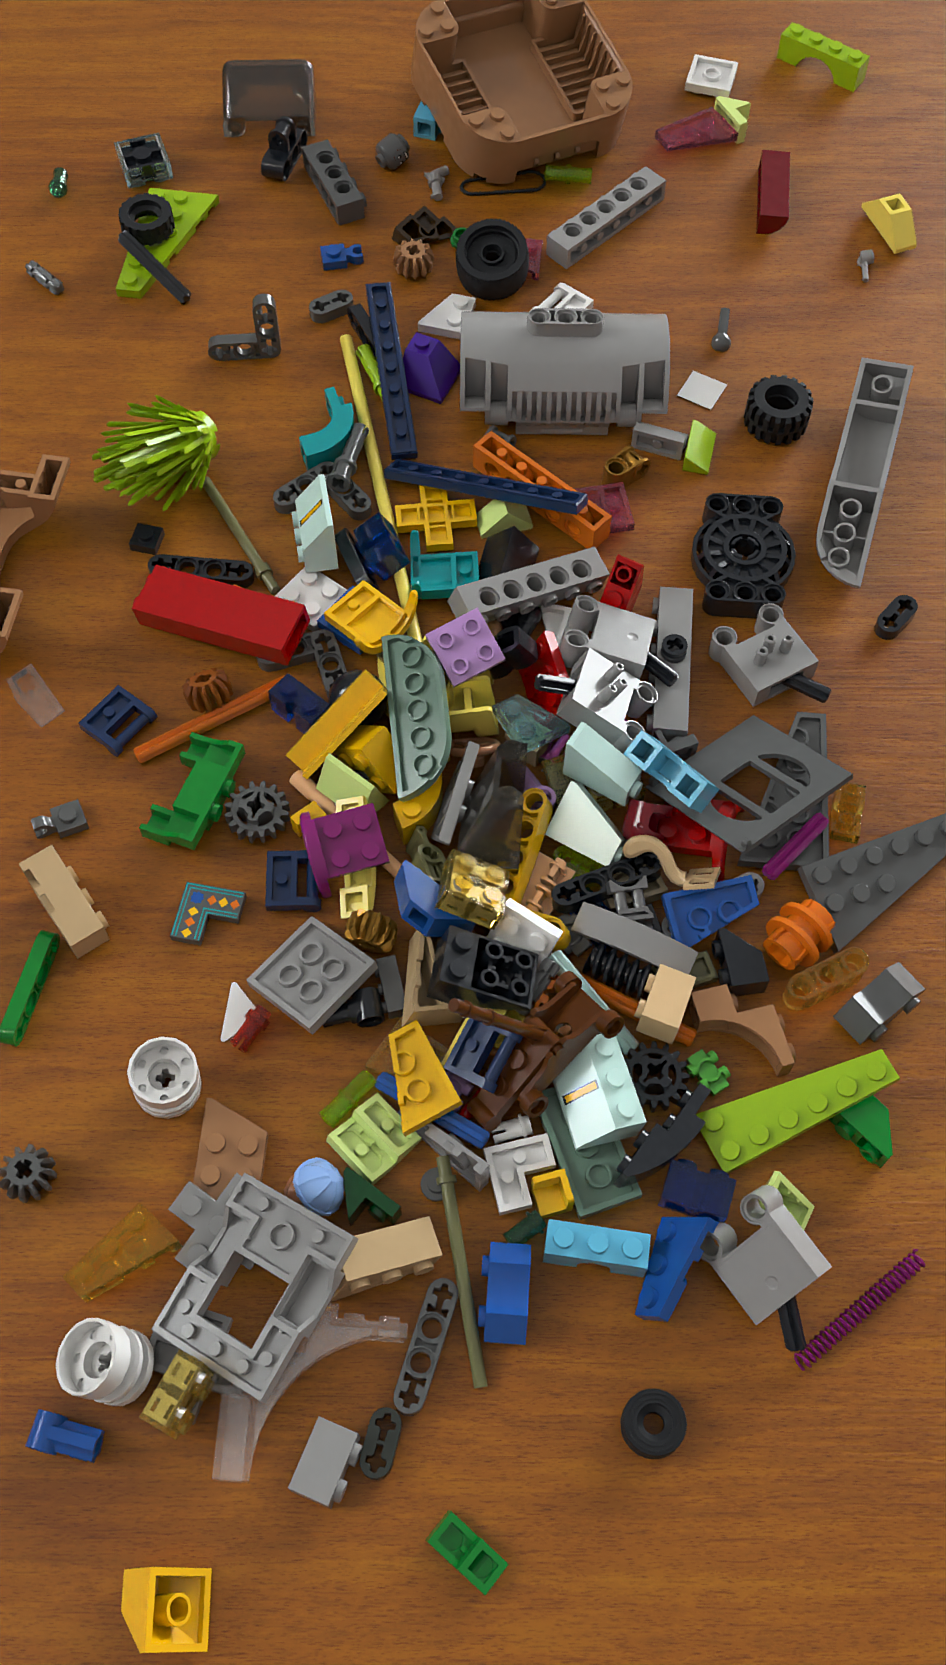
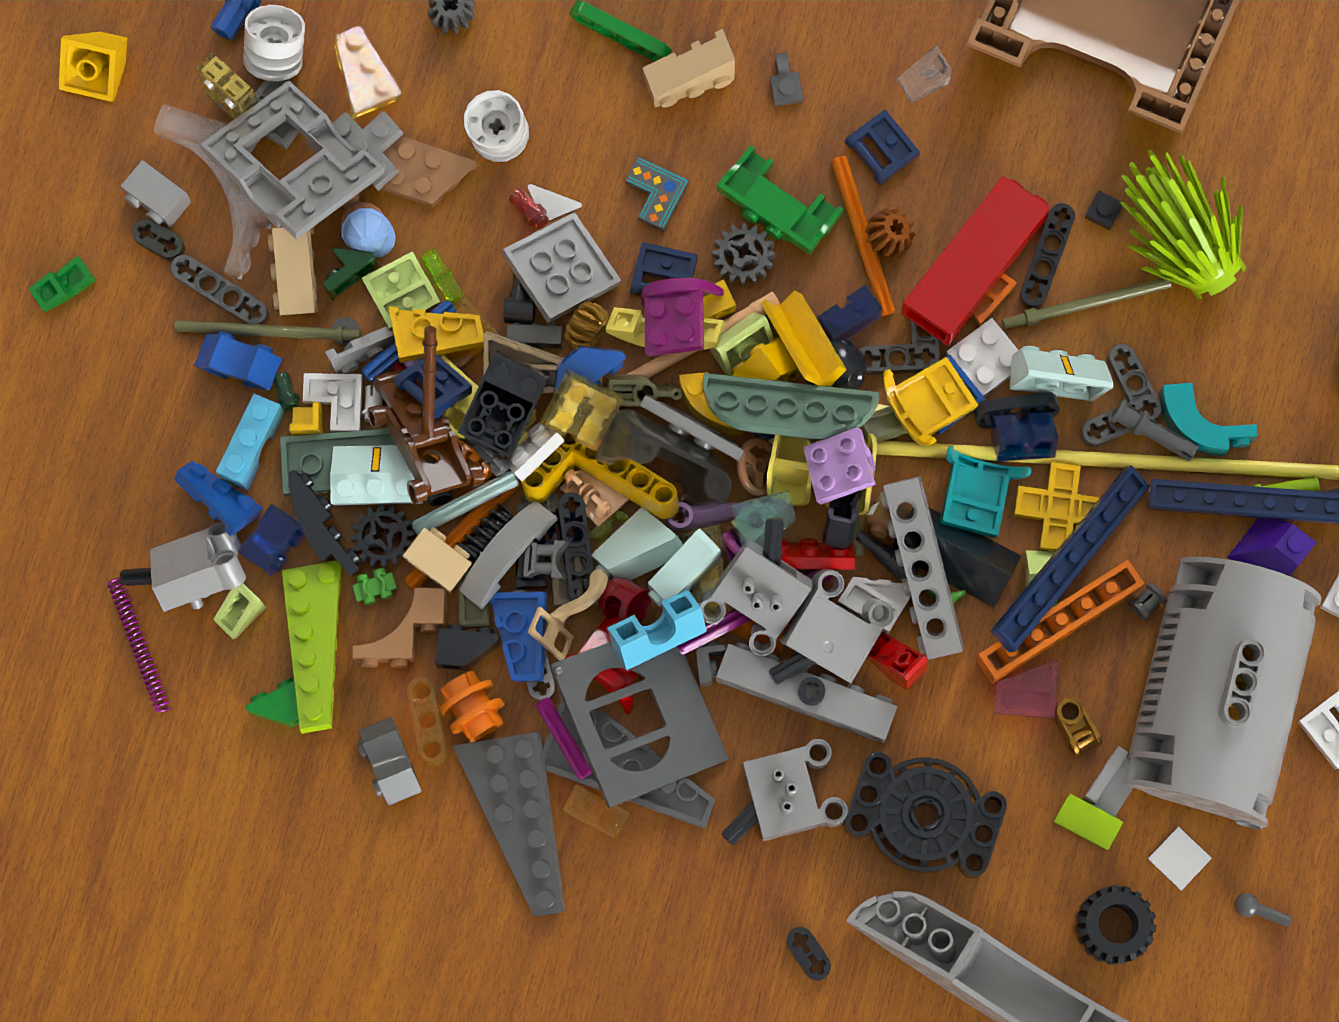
camera: 110 degrees right, 15 degrees up
(674, 1423) = (93, 436): black tyre -> none

